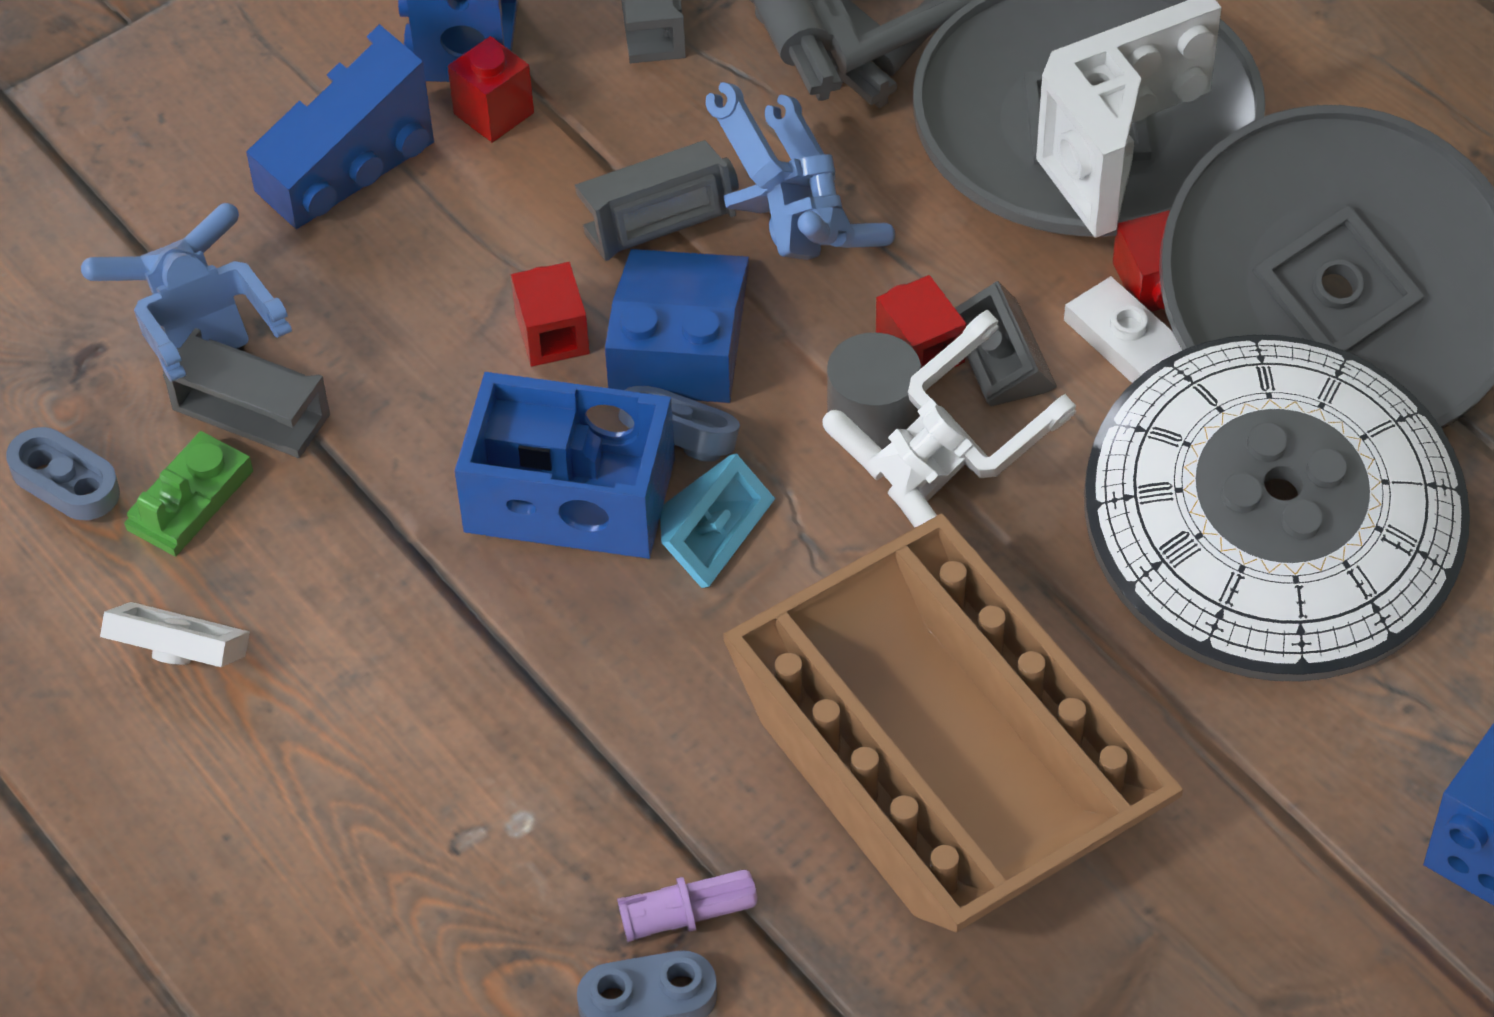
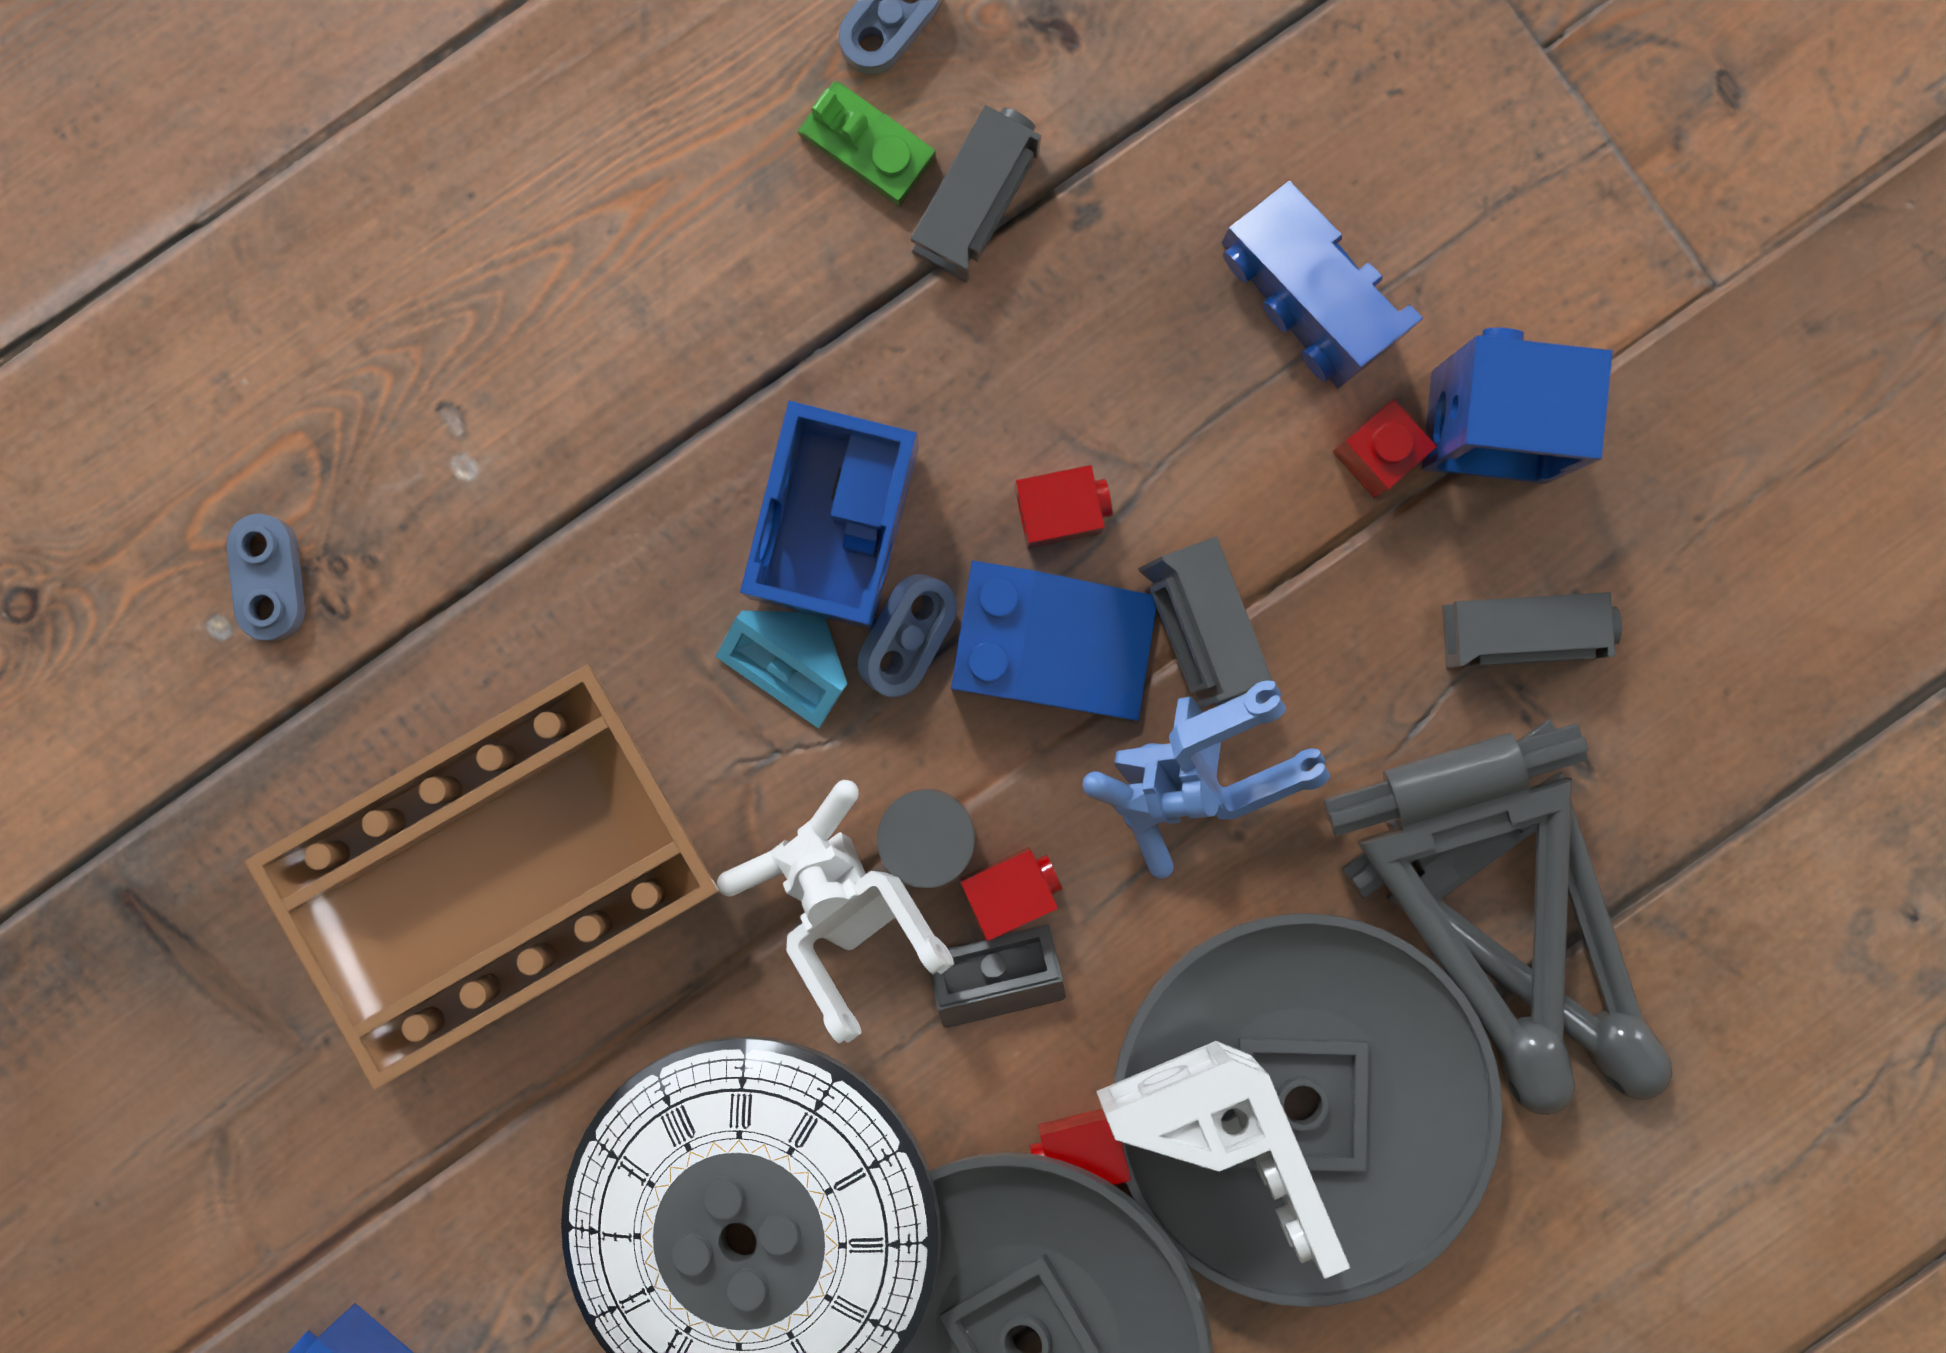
camera: 85 degrees right, 35 degrees up
(174, 636) = (679, 135): white plate -> none
(190, 292) = (1087, 132): medium blue piece -> none
(686, 904) = (346, 617): lavender axle -> none
(1121, 328) = (1003, 1107): white plate -> none

